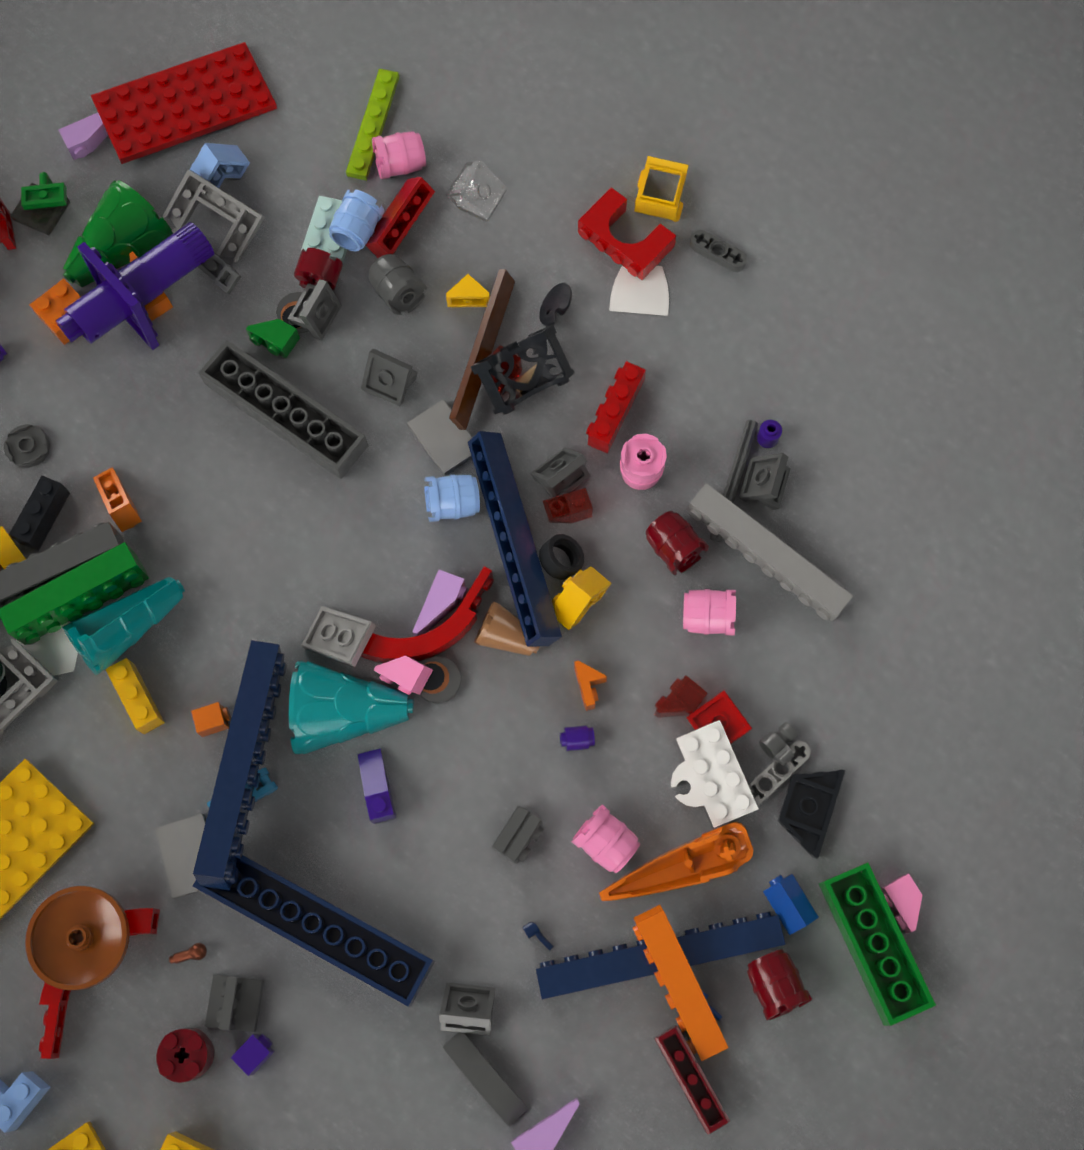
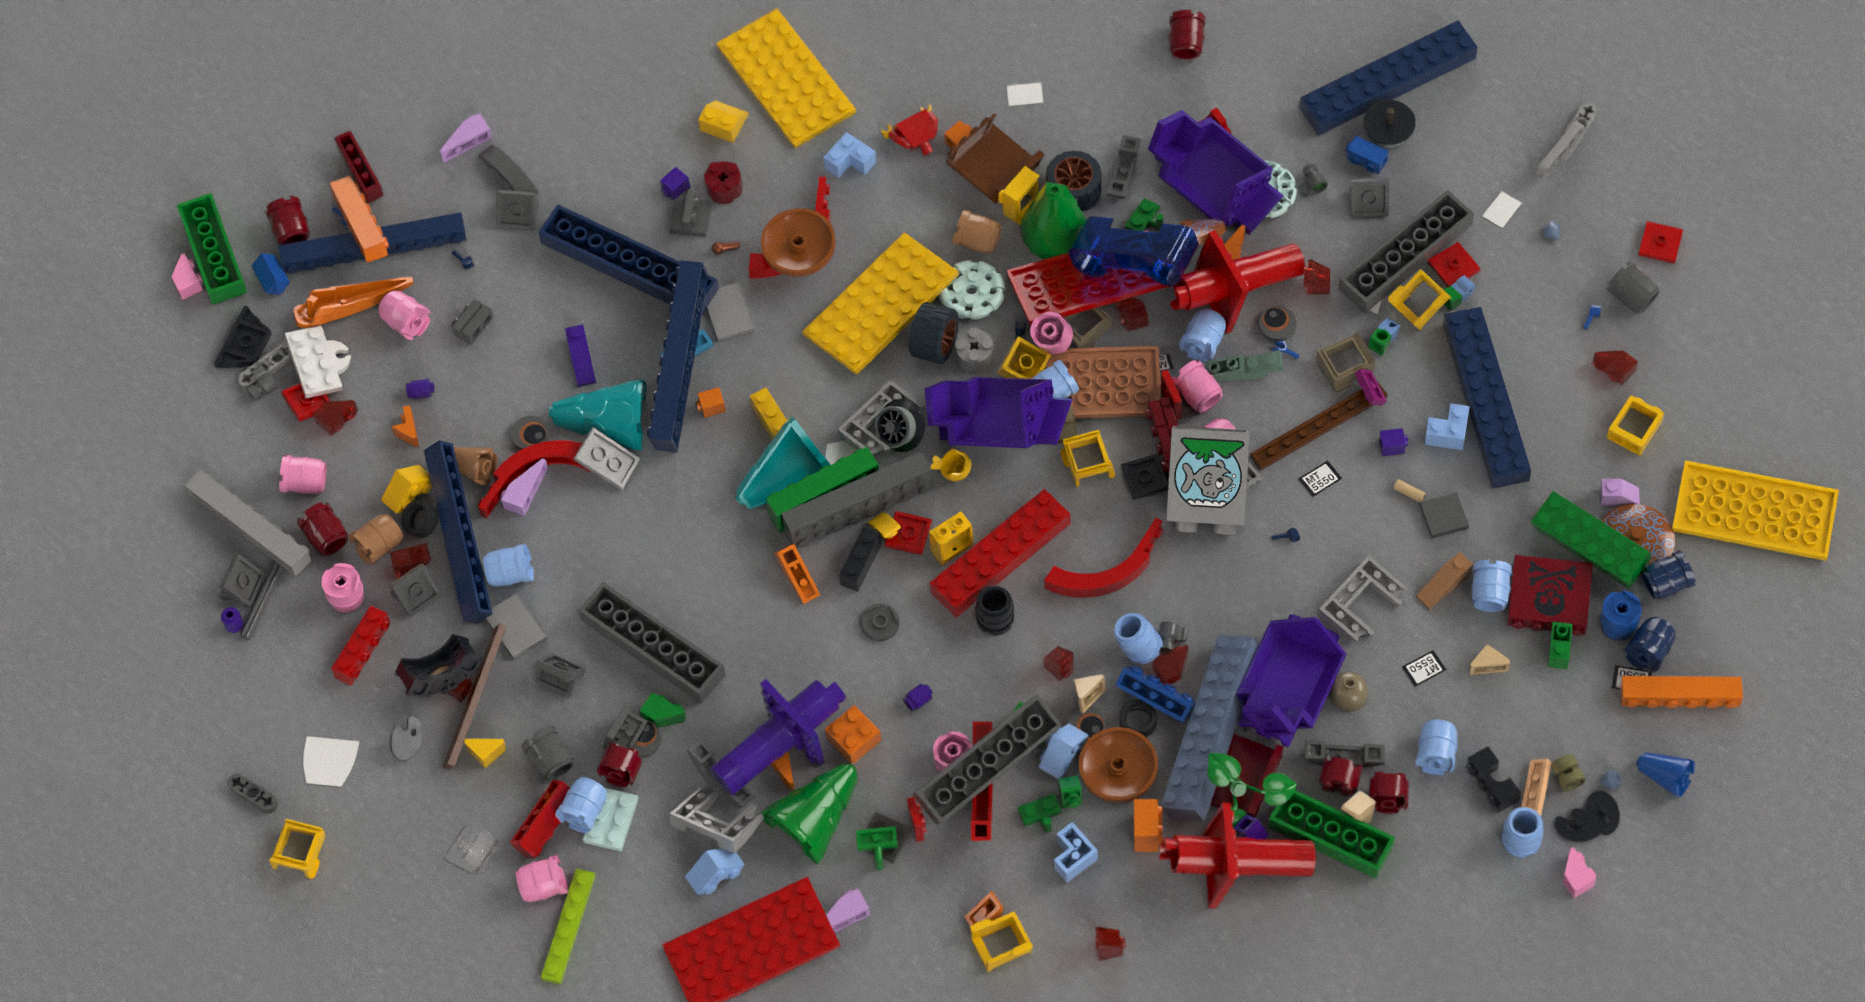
camera: 175 degrees left, 10 degrees down
(406, 672) = (552, 428): bright pink slope -> none
(611, 530) = (376, 538): none -> medium nougat piece
(637, 257) = (326, 781): red arch -> none

